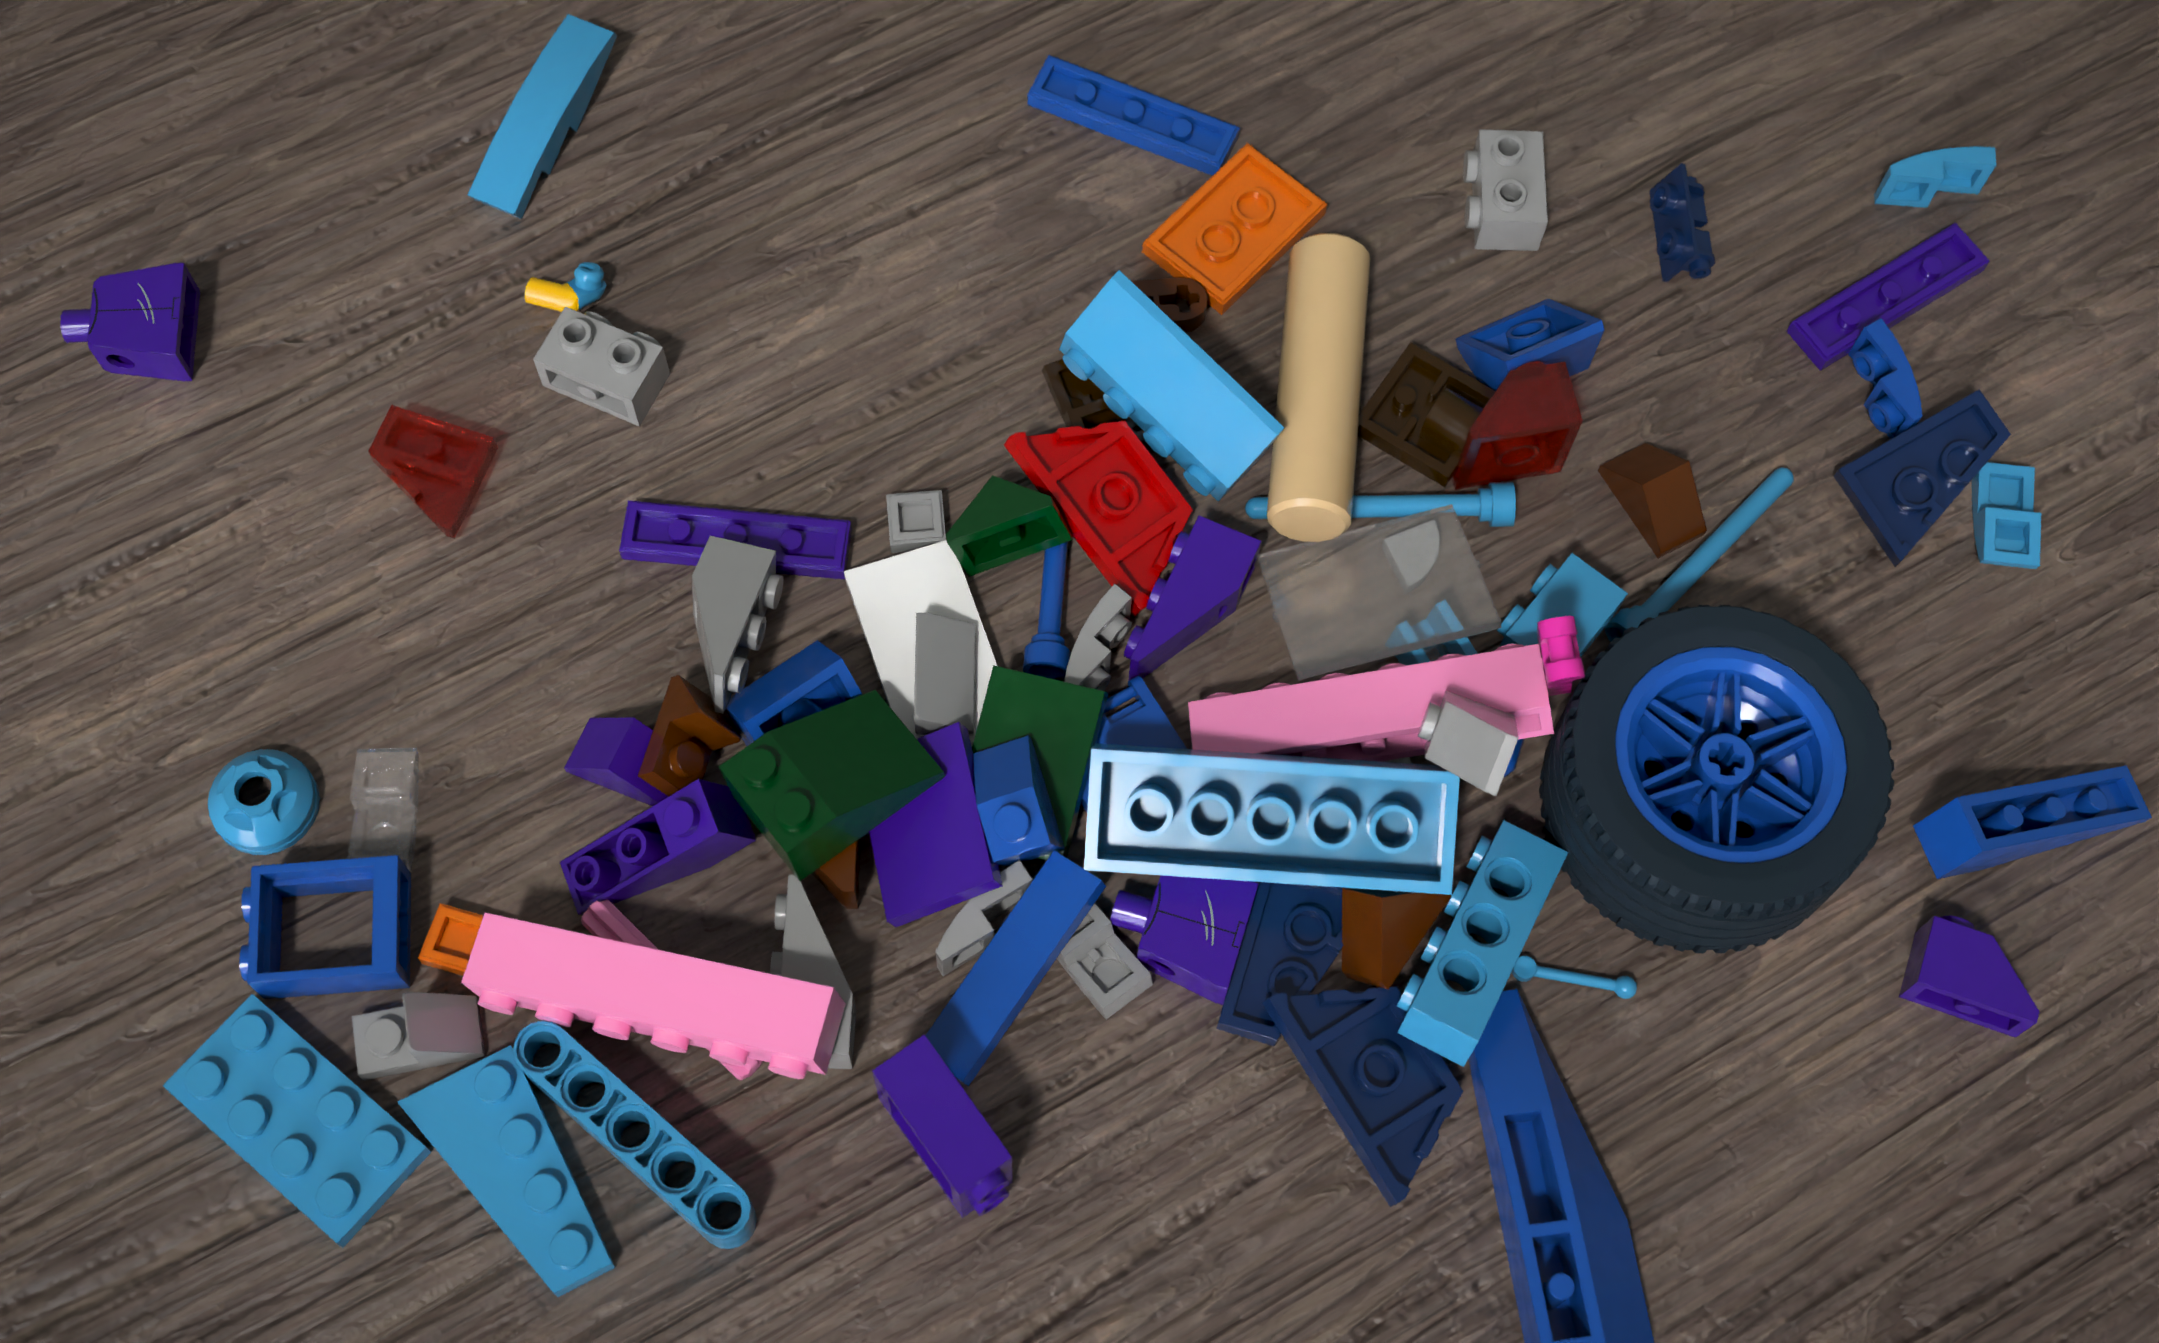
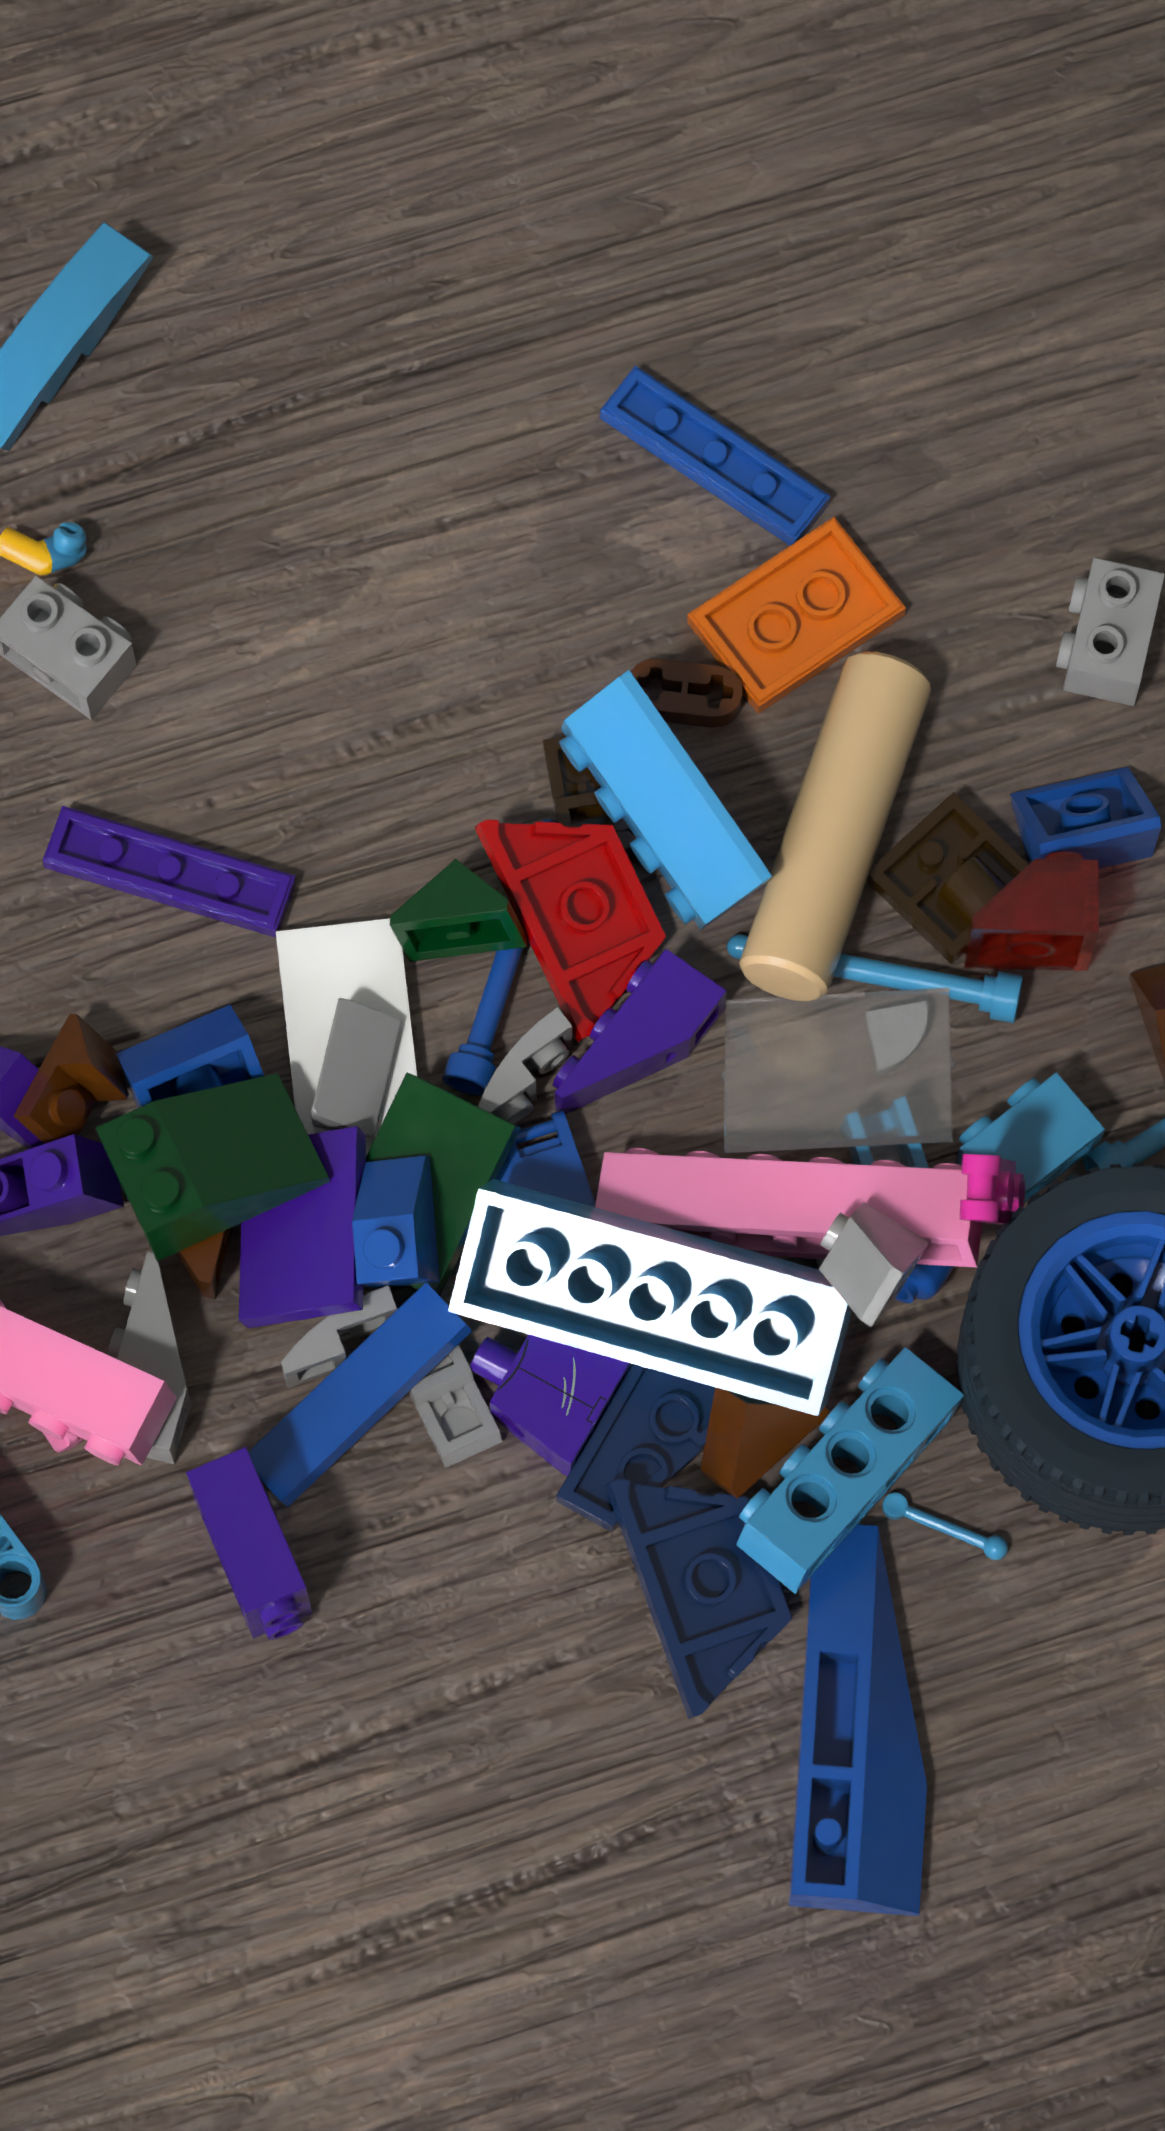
camera: 15 degrees right, 5 degrees up
(730, 598) = (147, 942): light grey slope -> none
(915, 520) = (366, 888): light grey tile -> none

